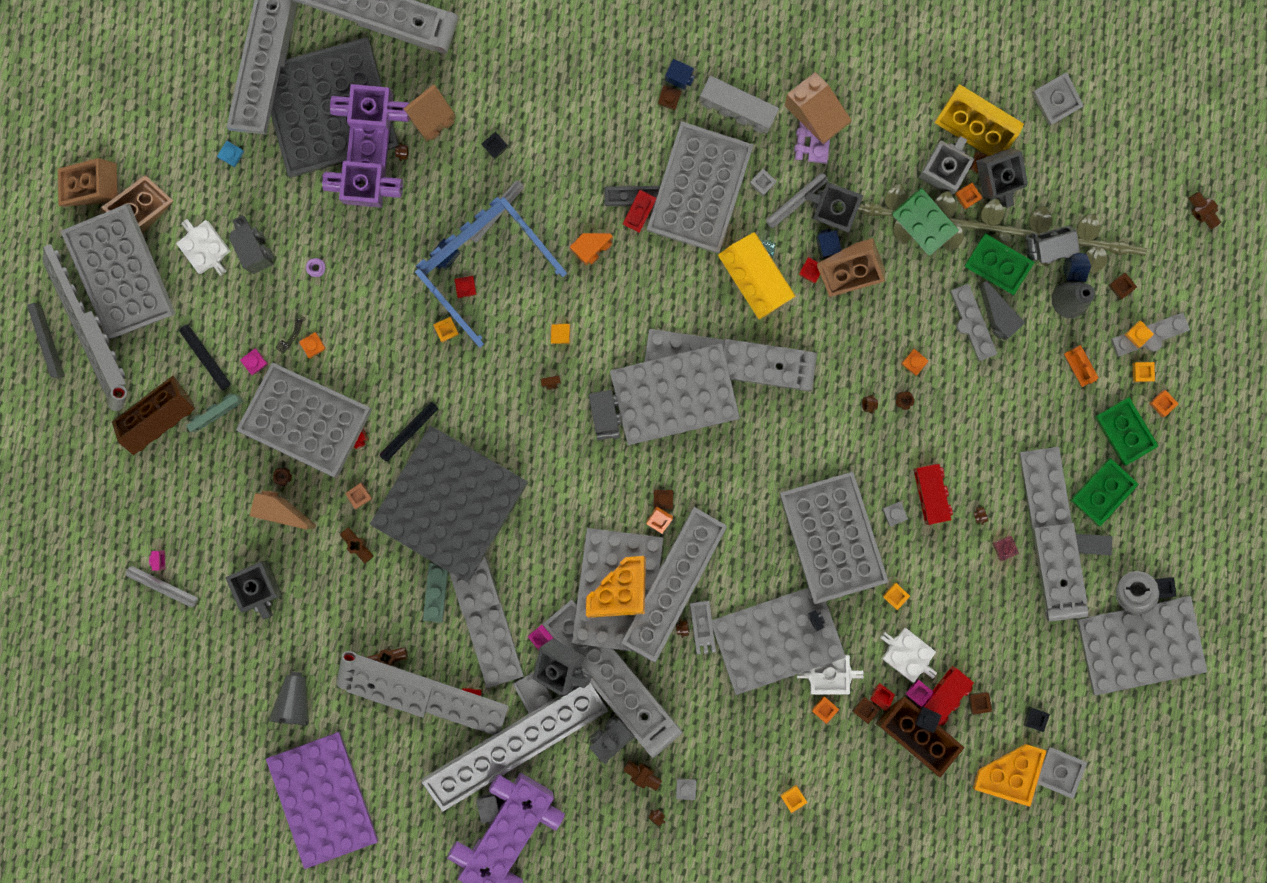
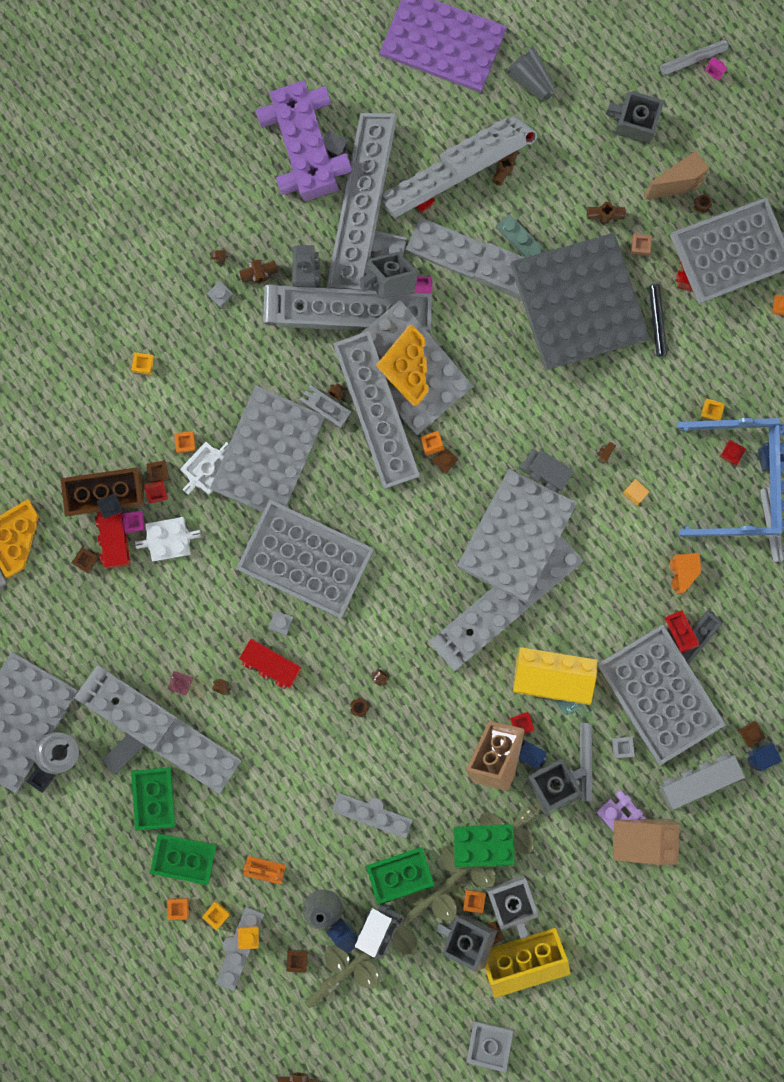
camera: 135 degrees right, 5 degrees down
(816, 620) = (256, 489): black plate -> none
(896, 596) = (219, 568): light orange plate -> none
(915, 362) = (381, 741): orange plate -> none
(1000, 314) = (356, 840): dark grey slope -> none
(1036, 719) = (34, 591): black plate -> none

